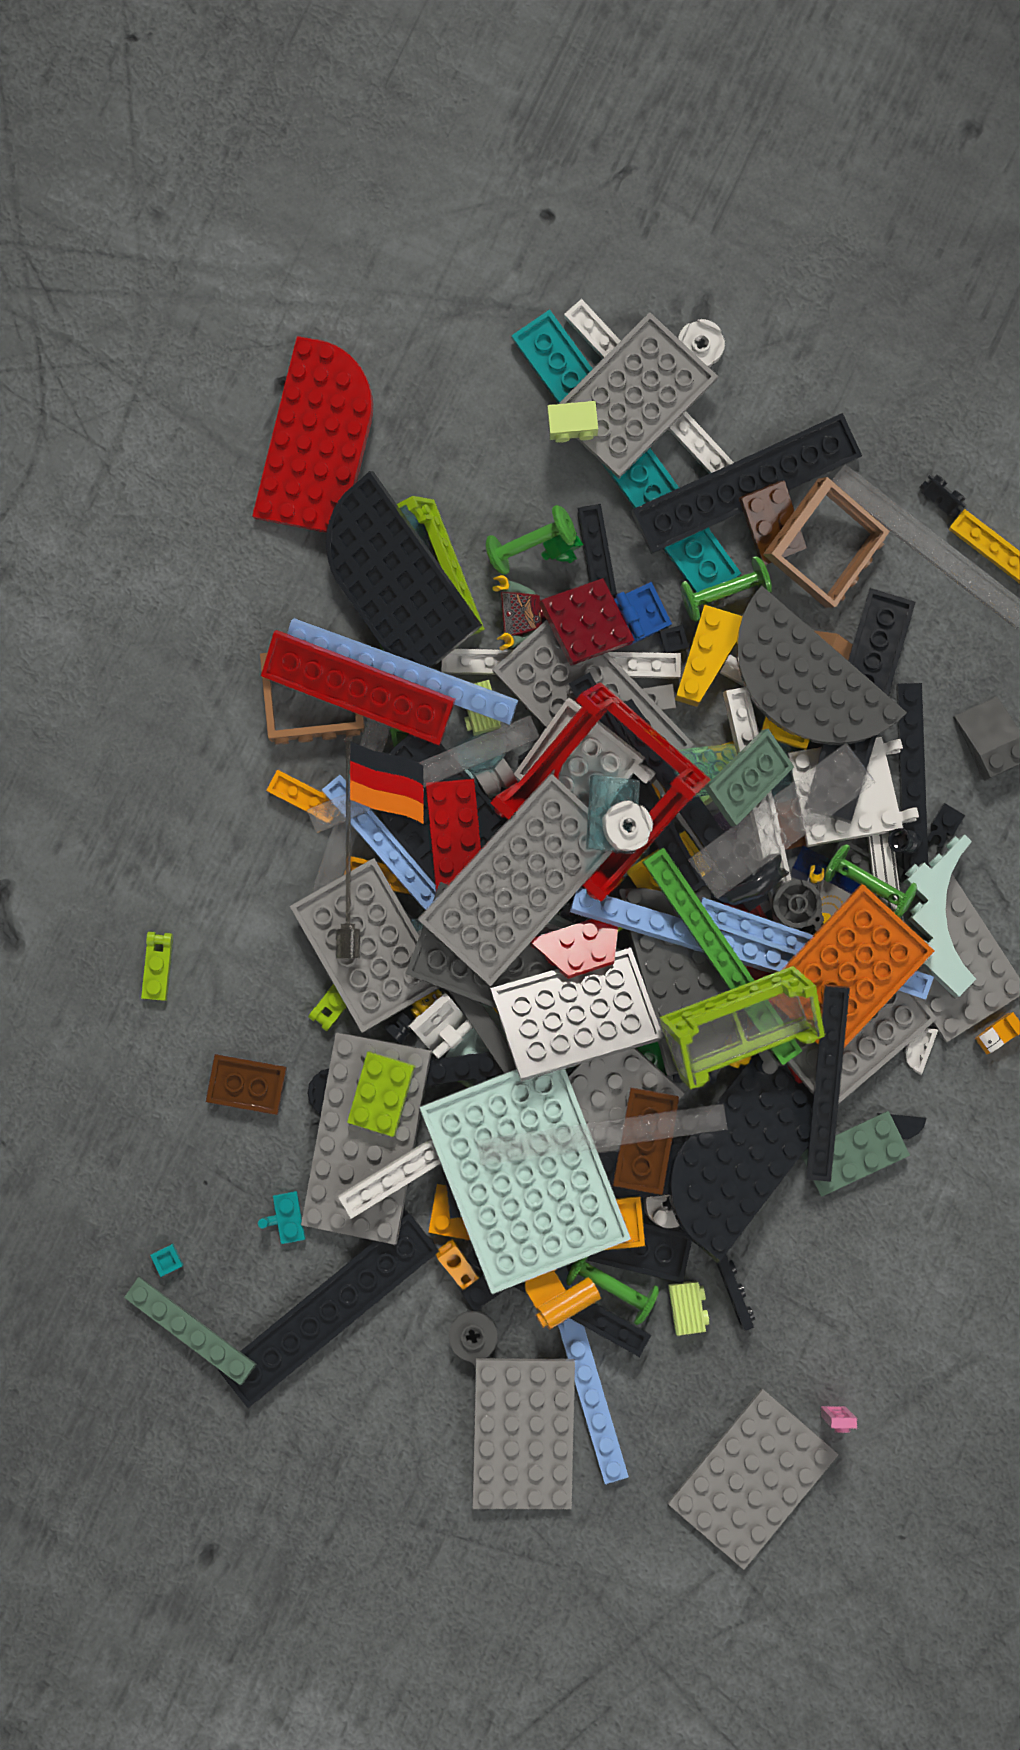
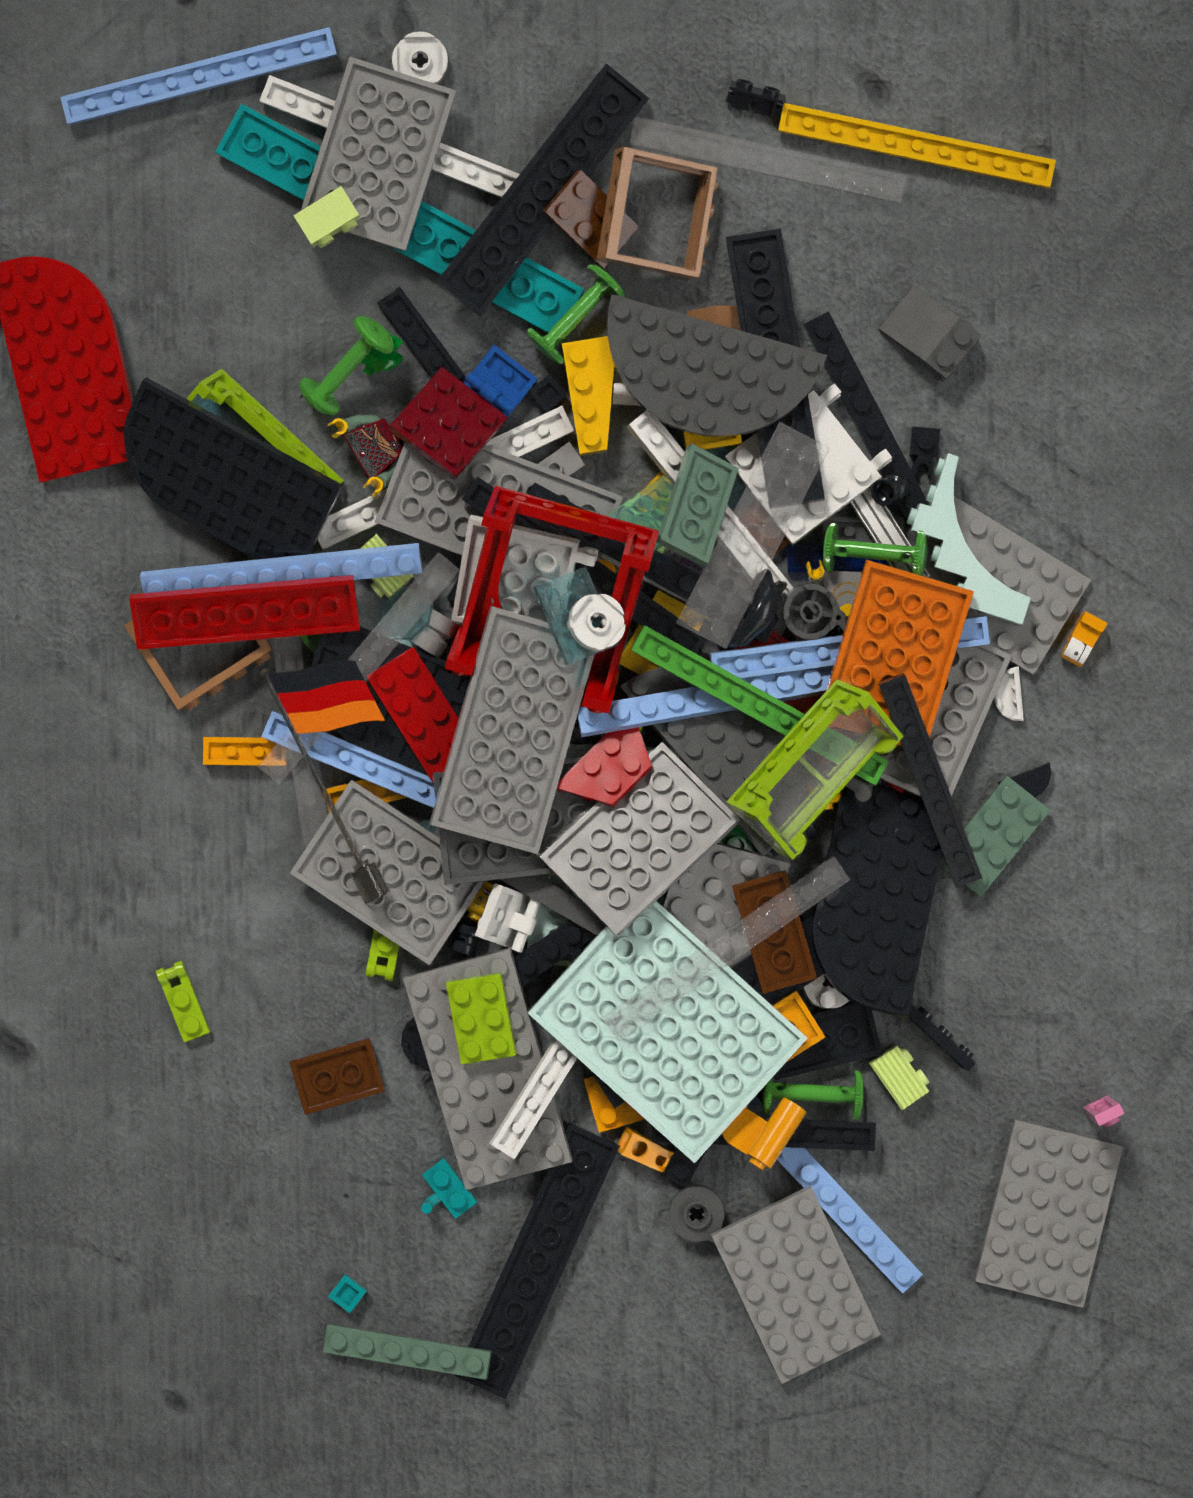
camera: 30 degrees left, 5 degrees up
(527, 274) = (198, 76): none -> light blue plate

